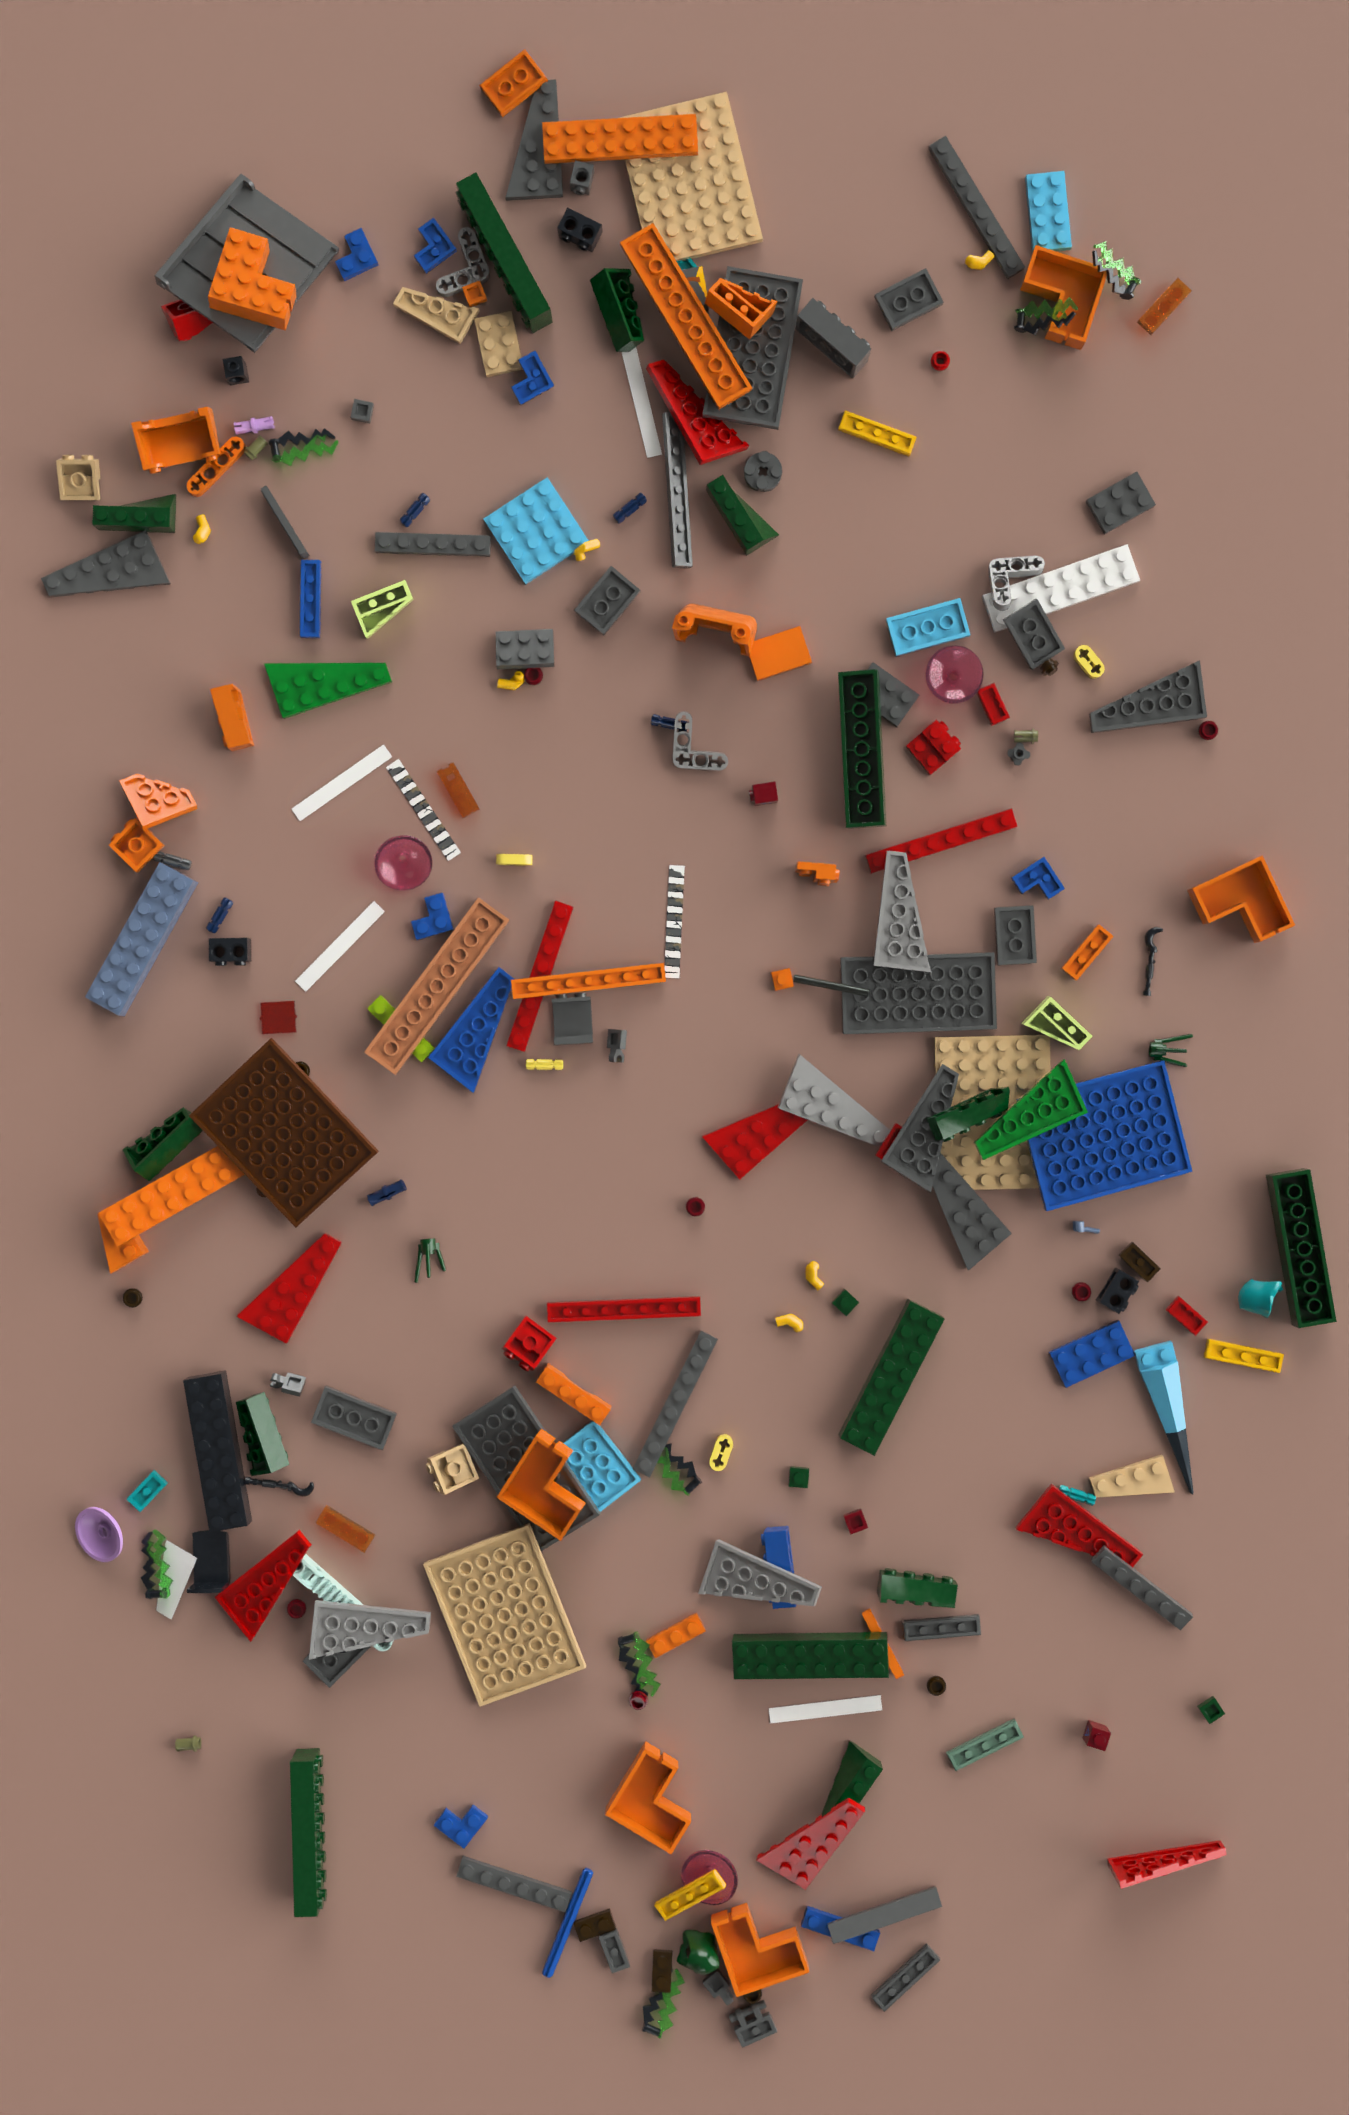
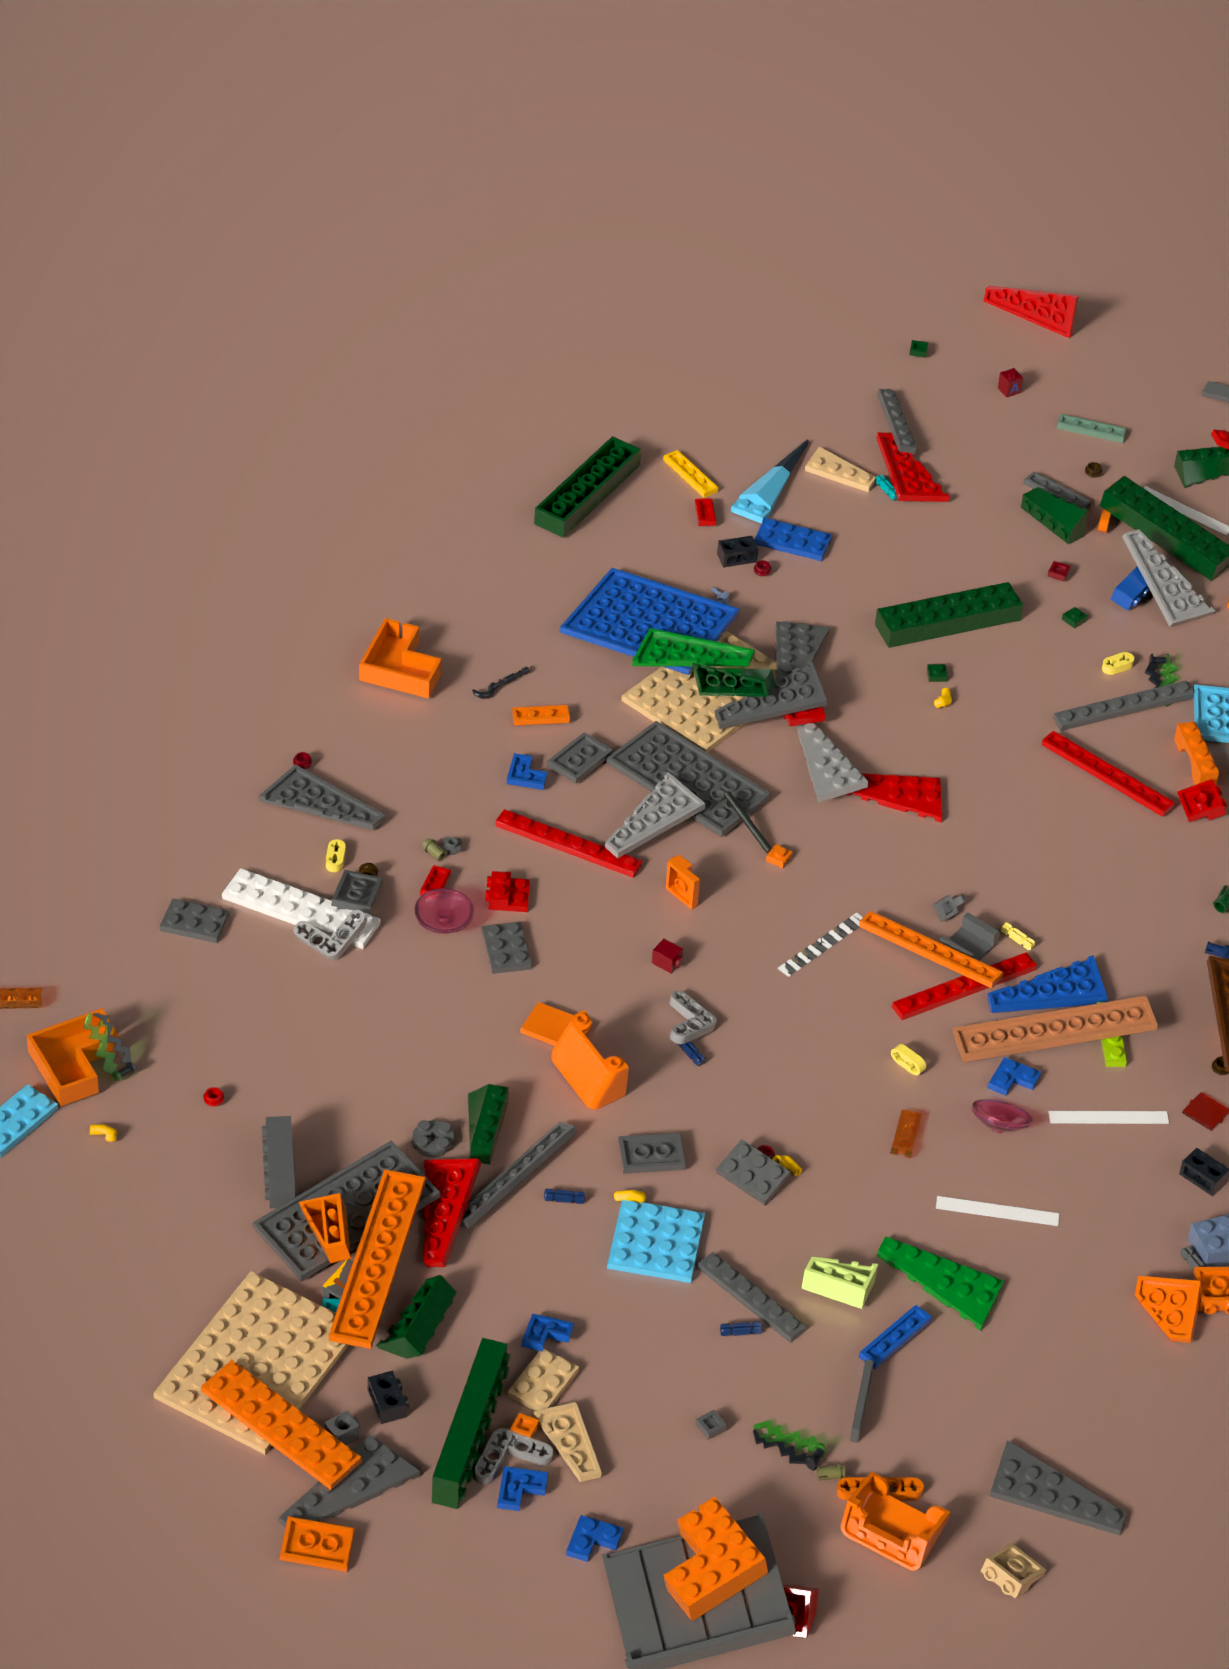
camera: 145 degrees left, 45 degrees down
(148, 515) = (985, 1501): dark green wedge -> none
(203, 531) = (937, 1453): yellow arm -> none
(219, 915) = (1191, 1202): dark blue axle -> none
(232, 717) = (1047, 1308): orange wedge -> none
(235, 370) = (790, 1534): black brick -> none
(254, 425) = (815, 1489): lavender pin -> none
(423, 809) = (947, 1147): sticker -> none
(641, 403) = (477, 1250): white sticker -> none
(695, 1206) = (990, 787): dark red plate -> none
(792, 1320) = (987, 689): yellow arm -> none
(862, 749) = (565, 918): dark green brick -> none
(877, 433) = (316, 1094): yellow tile -> none
(908, 299) = (188, 1149): dark grey plate -> none
(928, 627) = (426, 956): medium azure plate -> none
(976, 207) = (61, 1167): dark grey plate -> none
(1057, 1023) = (611, 693): yellowish green wedge -> none
(1125, 293) = (22, 1031): piece -> none
(1139, 1262) = (704, 554): dark brown plate -> none
(1158, 1049) = (555, 636): dark green plant -> none
(1258, 1296) = (645, 482): teal piece -> none

